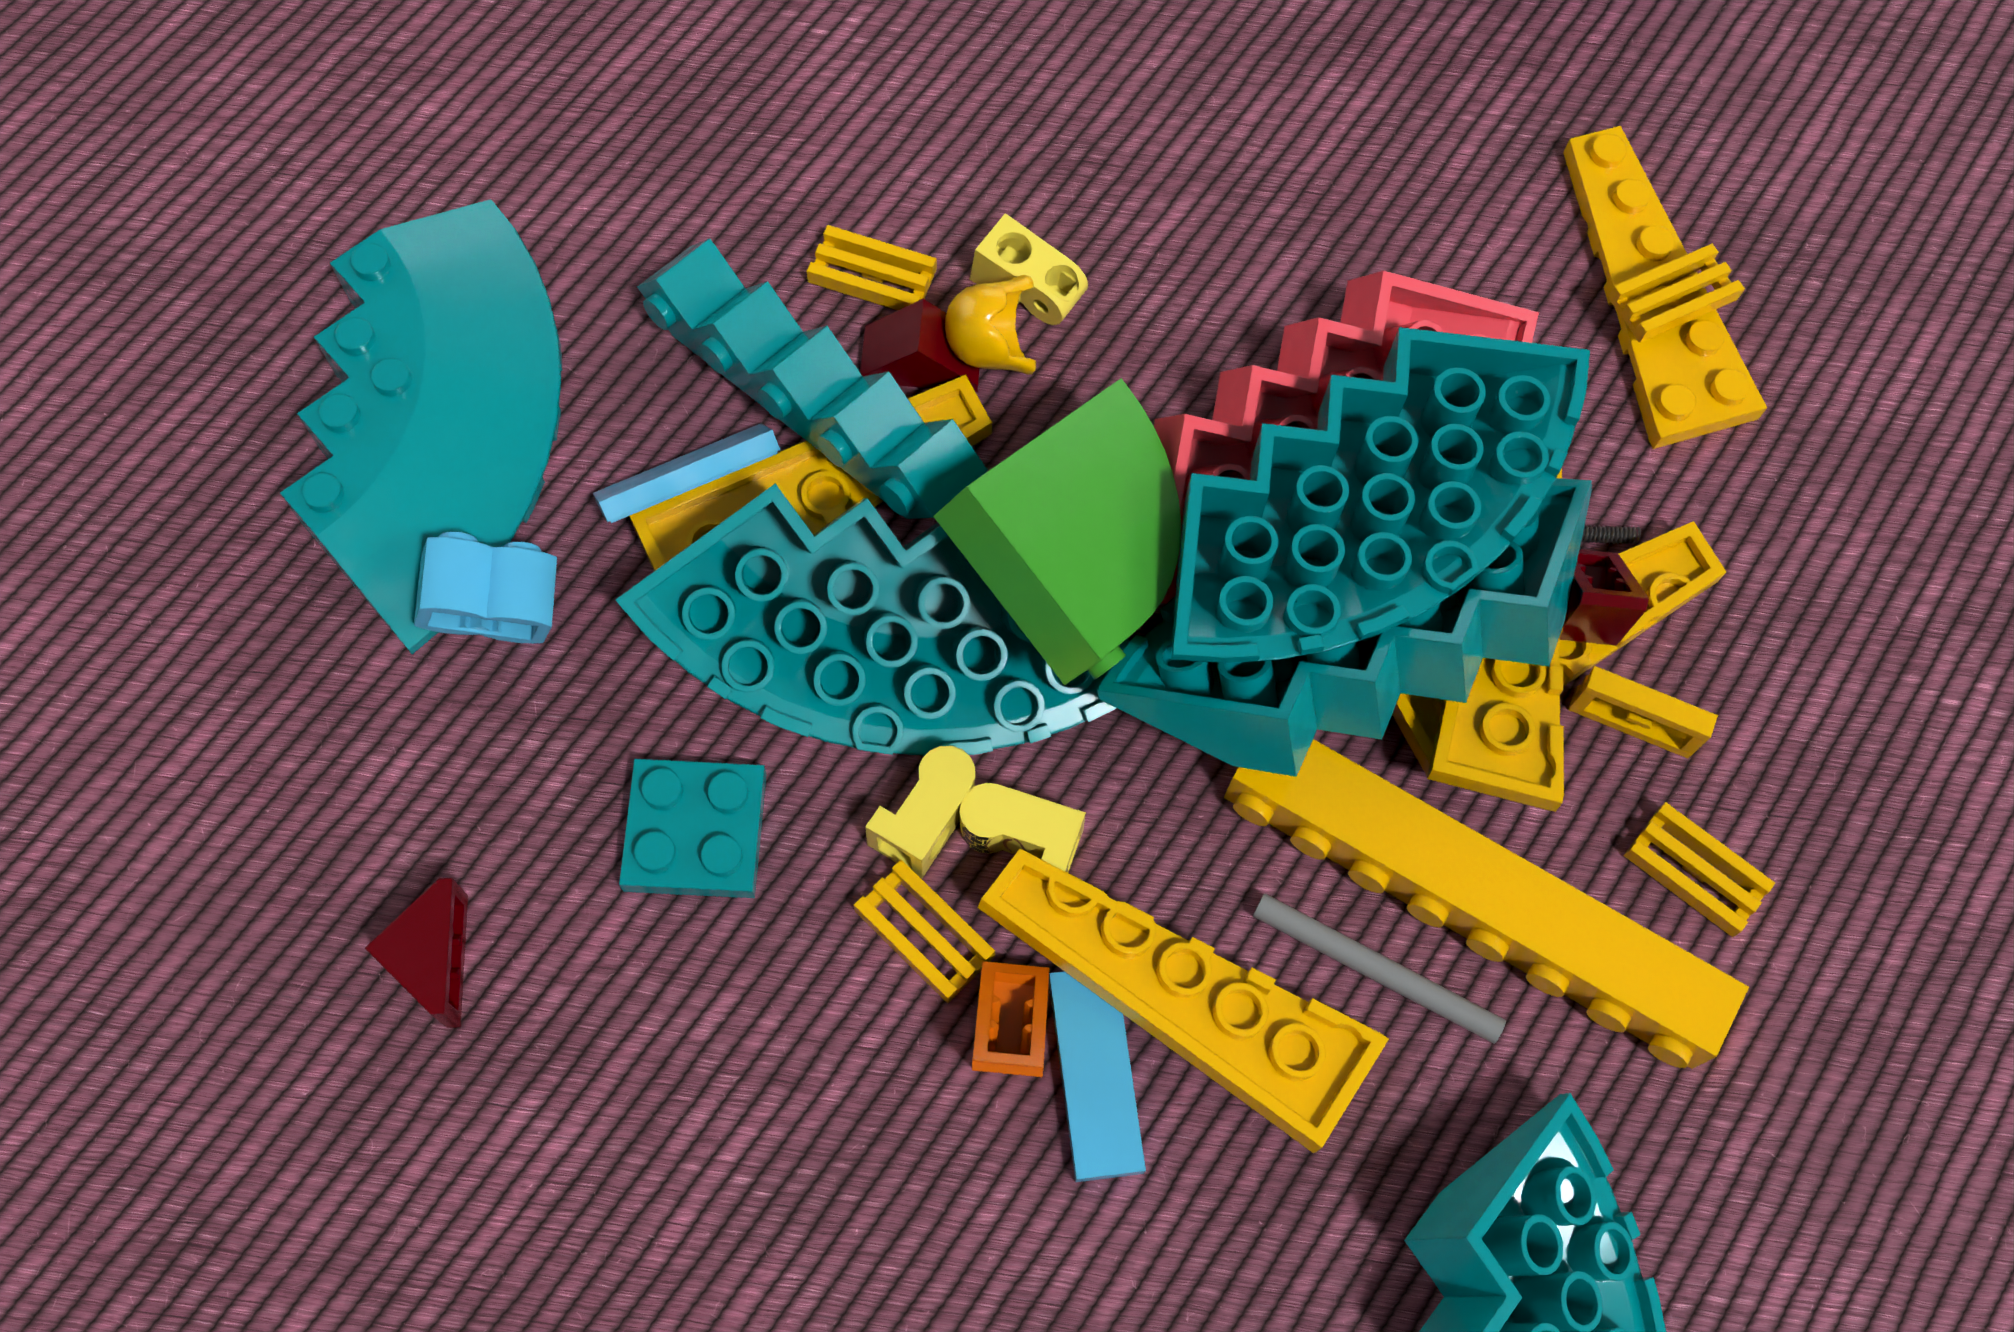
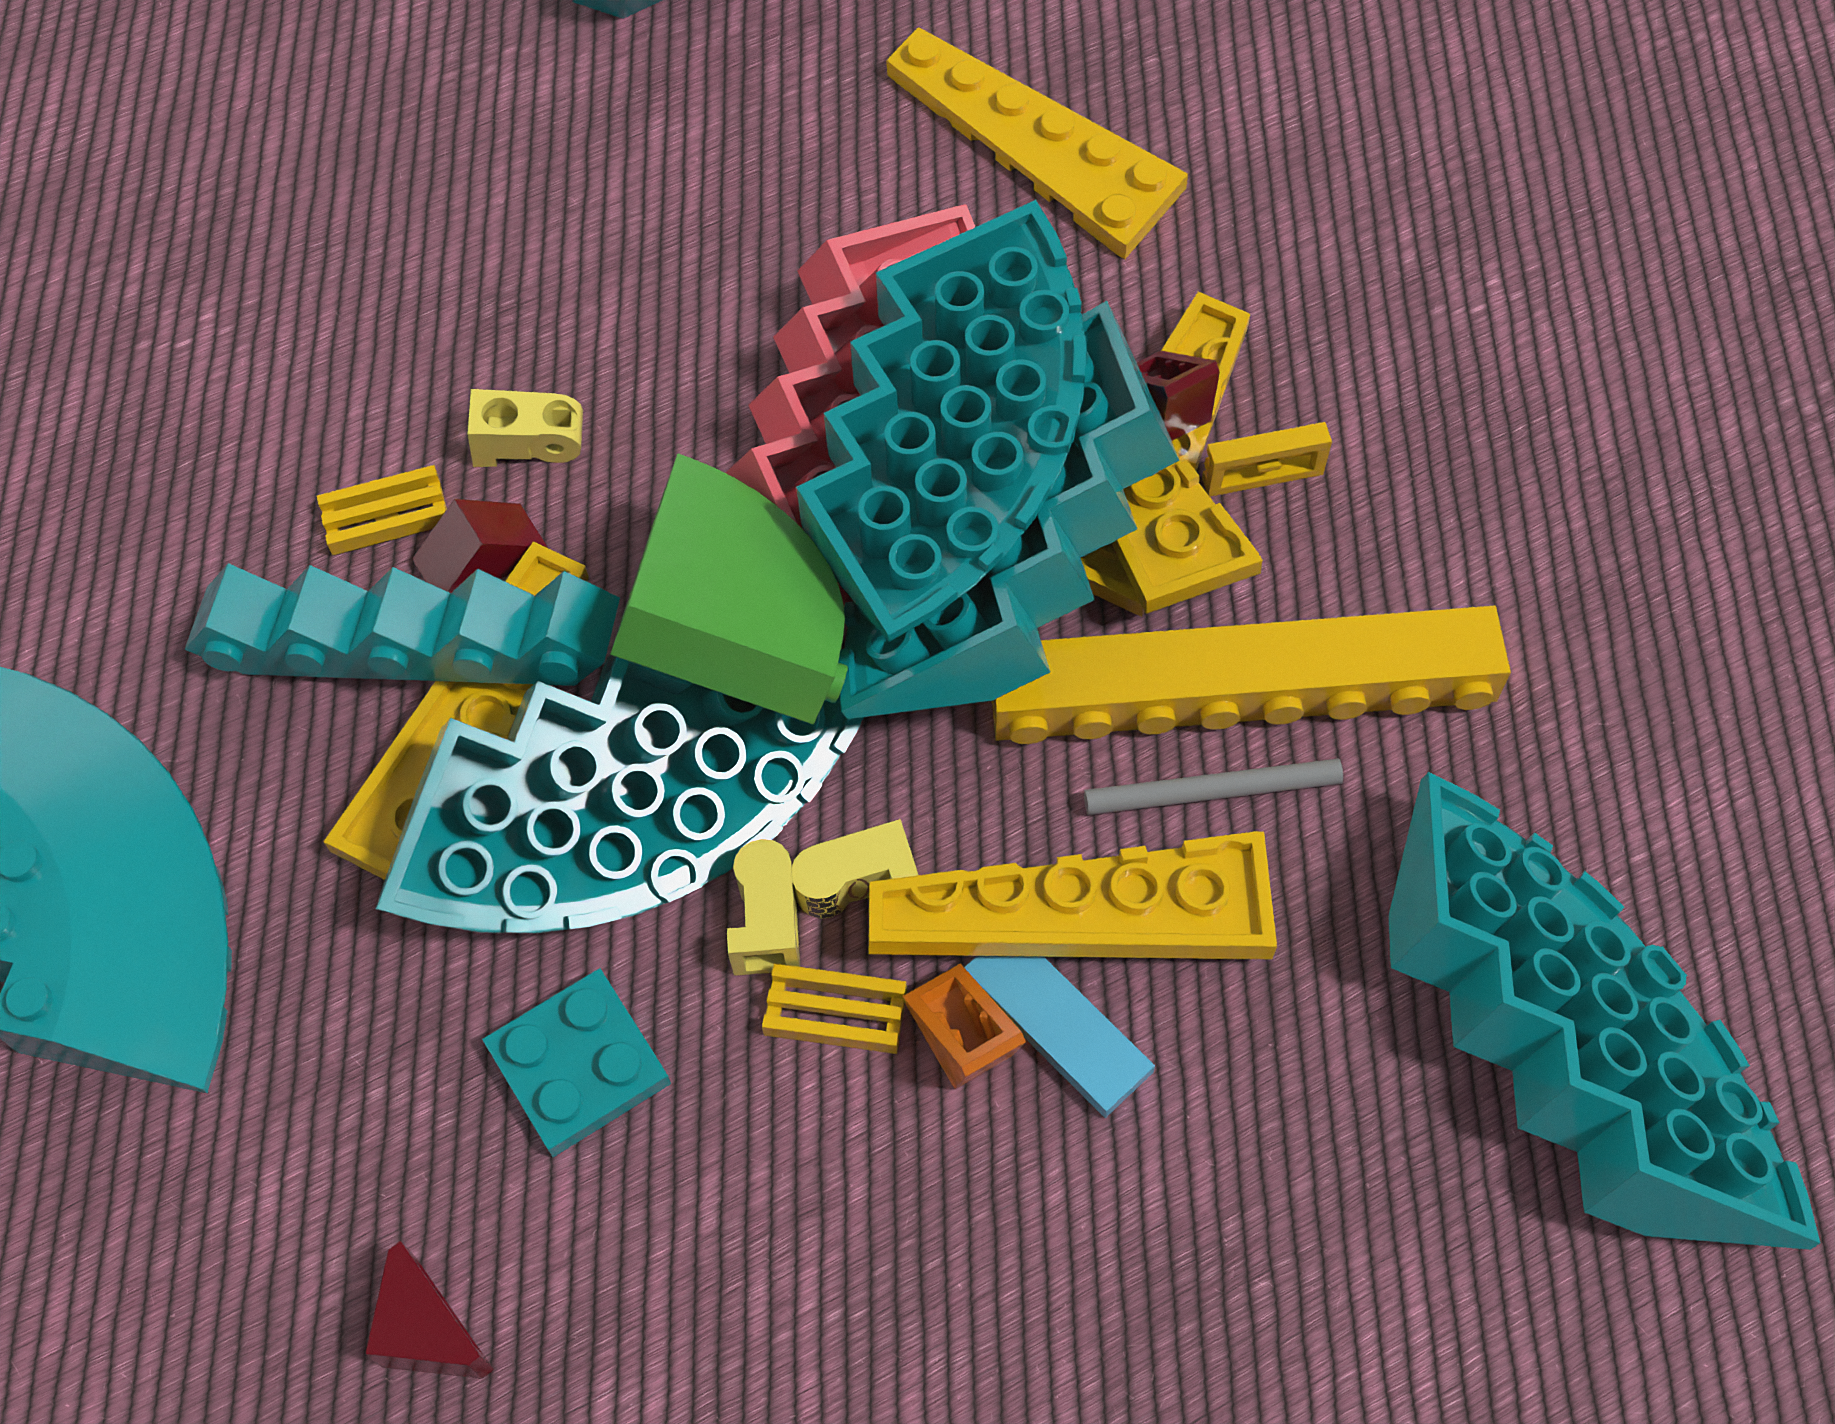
camera: 30 degrees left, 5 degrees down
(485, 589) = (240, 987): medium azure brick -> none
(686, 472) = (347, 776): medium azure tile -> none
(983, 326) = (517, 492): yellow hair -> none
(1611, 533) = (1153, 342): flat silver leg -> none
(1712, 273) = (1074, 97): yellow tile -> none
(1712, 851) = (1392, 540): yellow tile -> none

